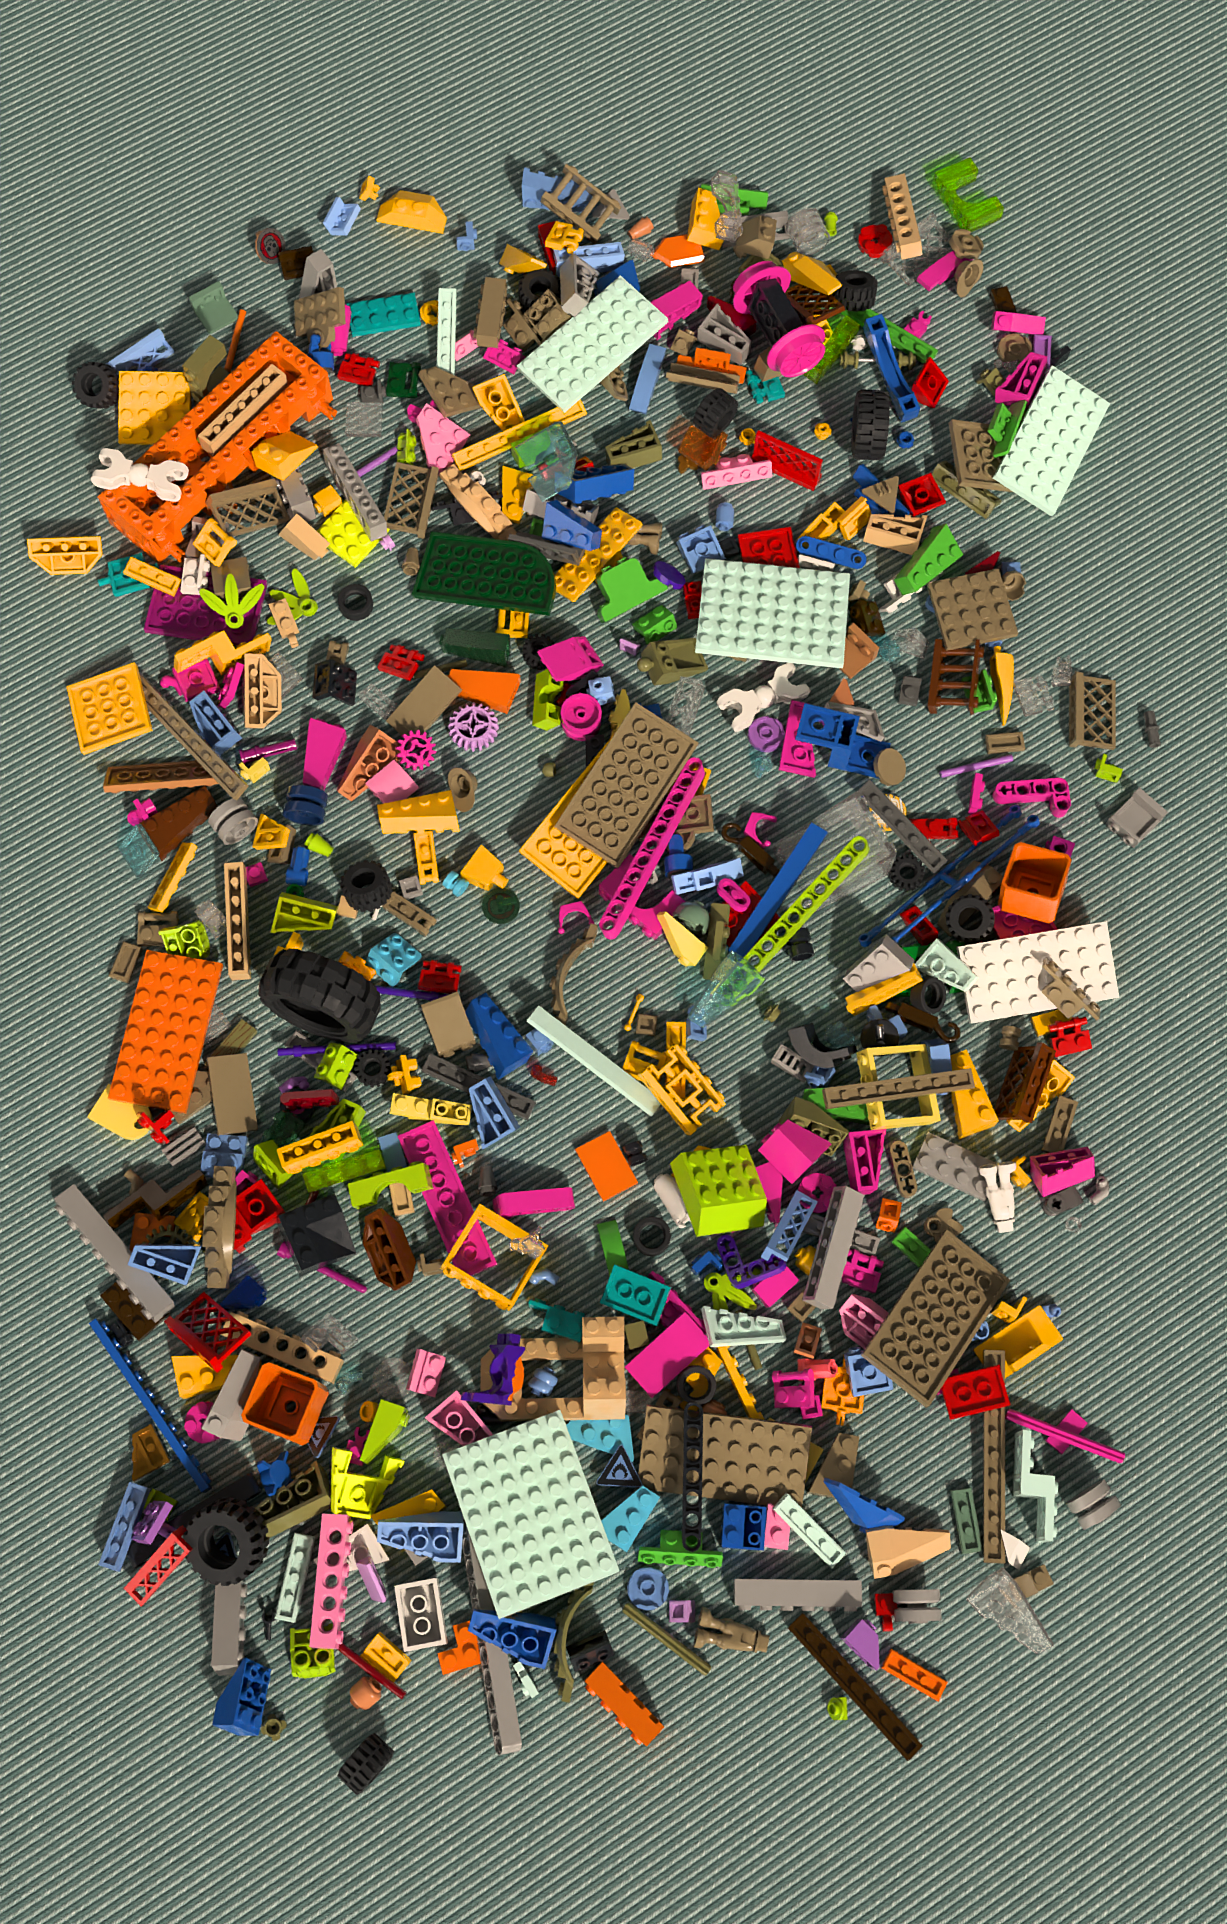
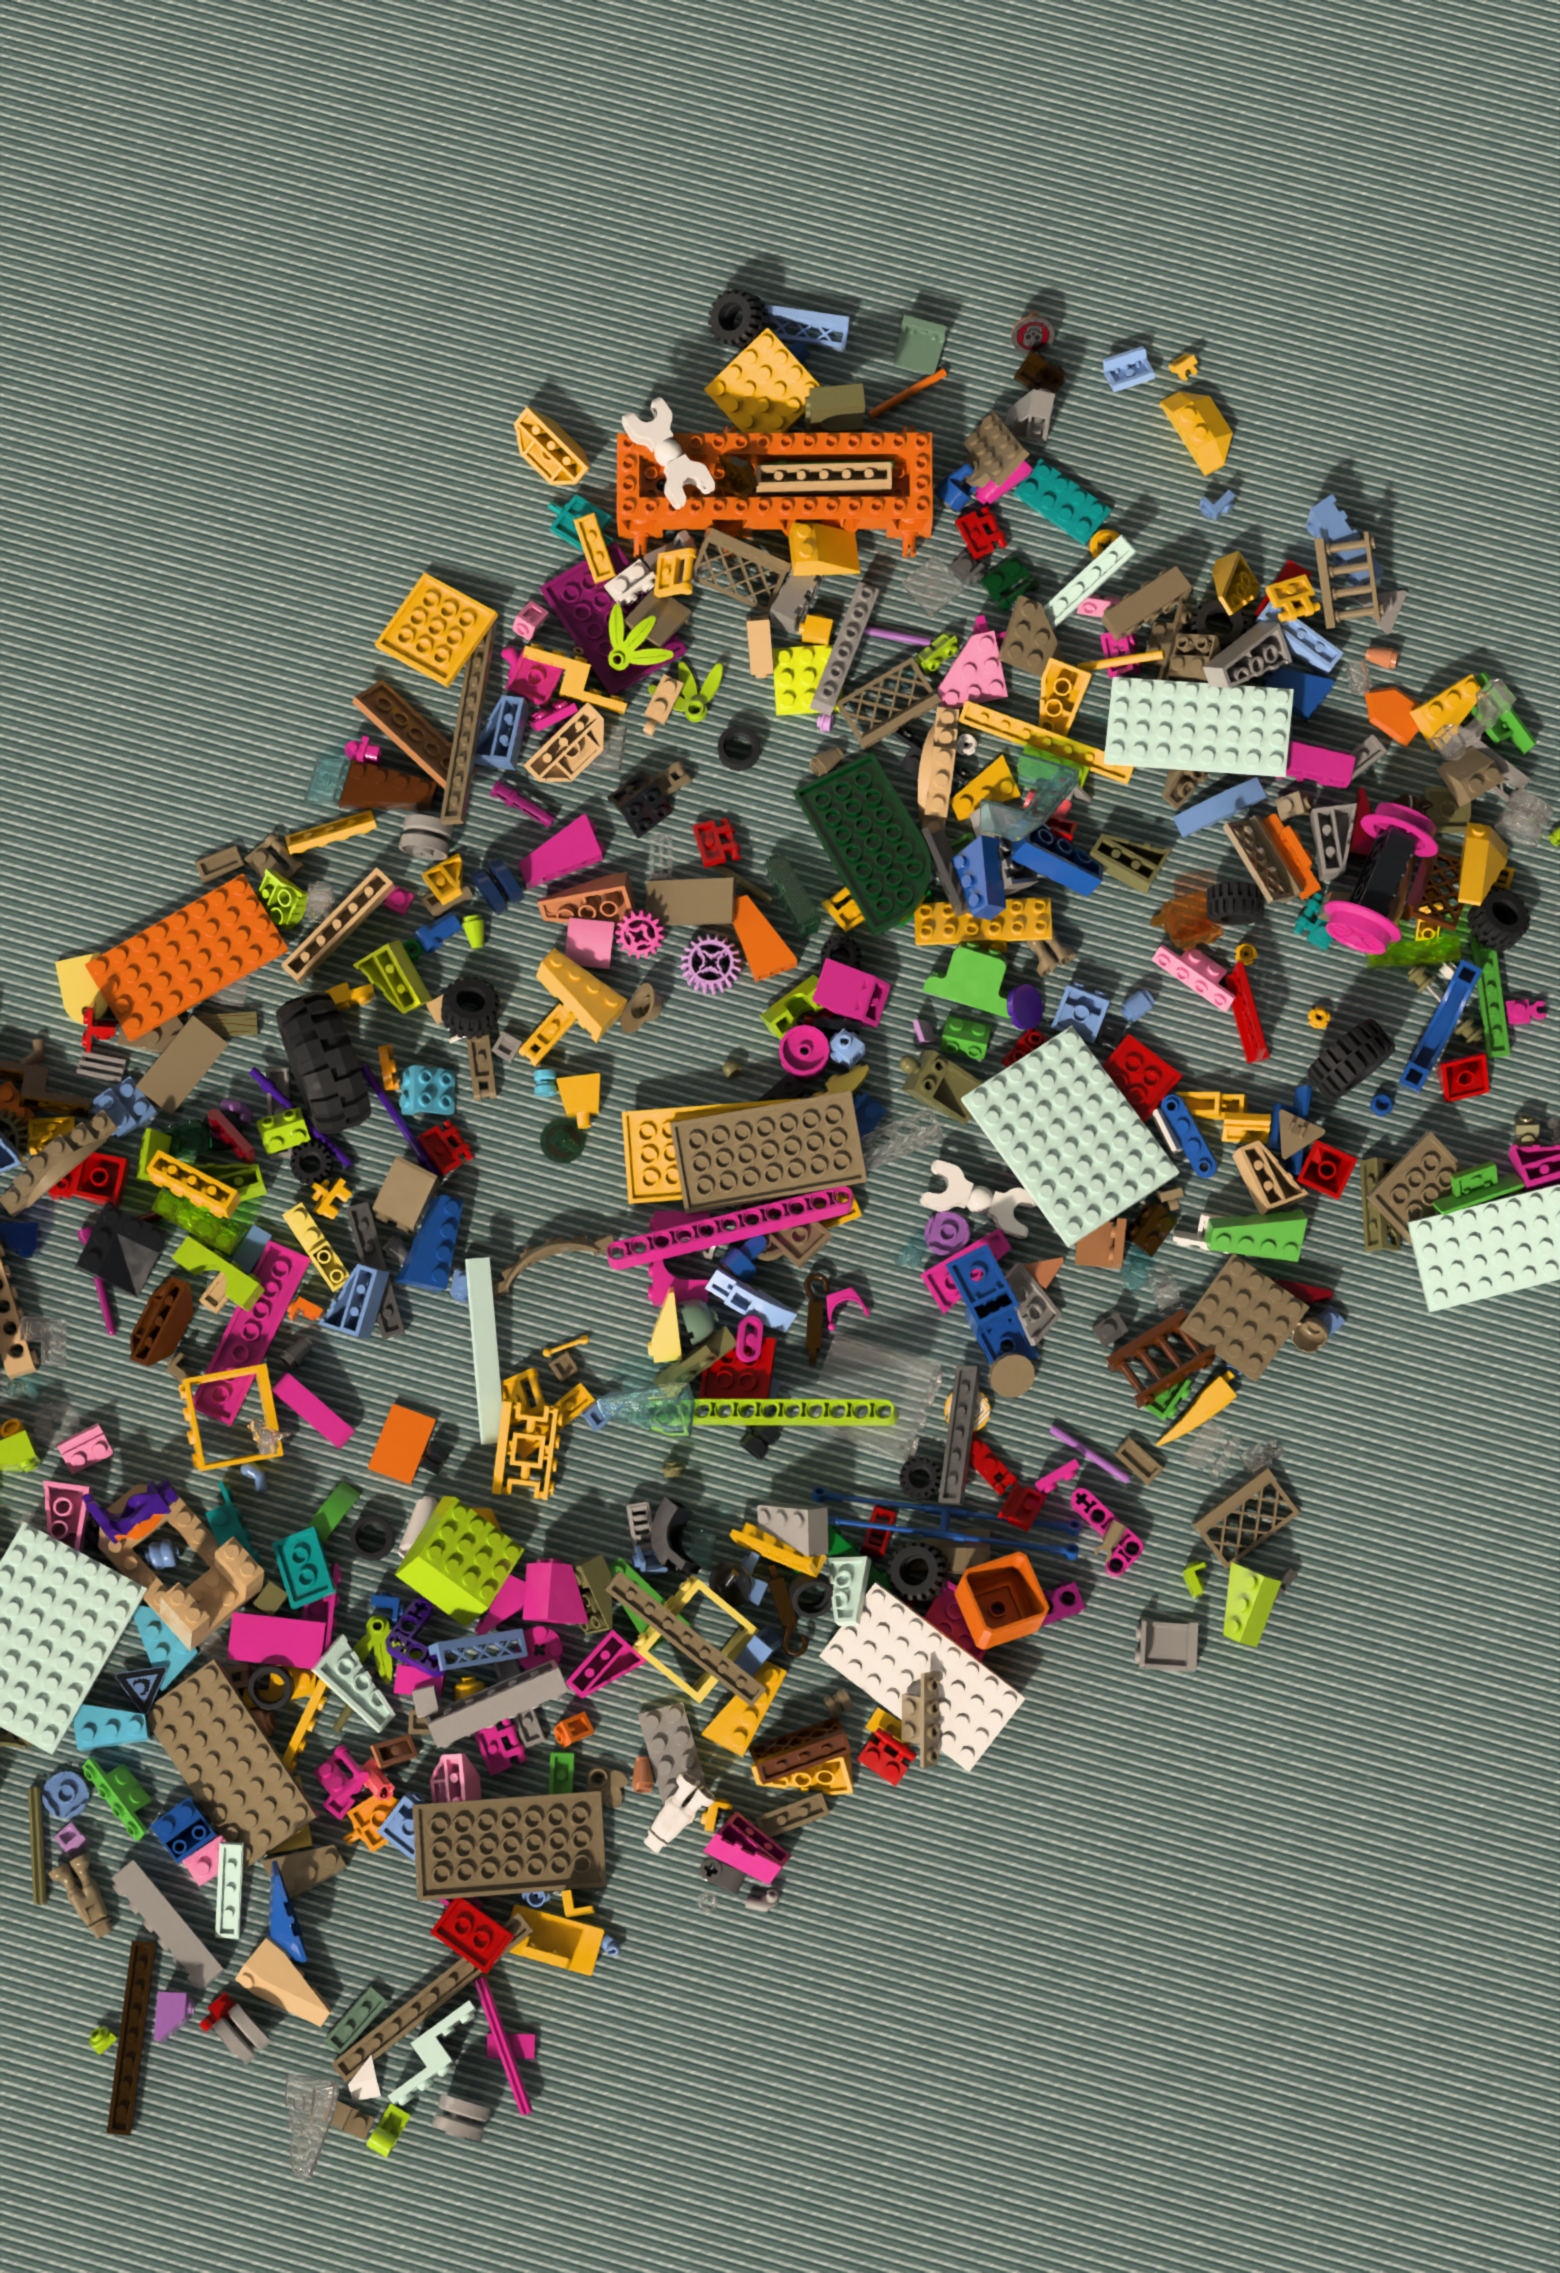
camera: 50 degrees right, 5 degrees up
(158, 653) = (529, 620): none -> bright pink bracket
(192, 450) = (740, 475): none -> dark brown bracket
(242, 1180) = (115, 1143): dark pink bracket -> none
(256, 770) = (497, 811): light yellow bracket -> none
(513, 351) = (1122, 660): none -> yellow bar
(542, 1077) = (433, 1319): clear red arm -> none
(565, 909) = (618, 1209): dark pink helmet -> none
(695, 1486) = (174, 1750): black beam -> none
(779, 890) = (789, 1375): blue tile -> none
(794, 1290) = (426, 1701): none -> light grey slope
(901, 1184) = (643, 1697): dark tan beam -> none
(914, 1675) = (185, 2082): orange tile -> none
(955, 1196) = (642, 1776): none -> nougat cone
(1046, 792) = (1111, 1538): none -> dark tan bar
(1060, 1562) = (388, 2130): none -> lime plate
(1151, 749) = (1248, 1603): none -> lime wedge

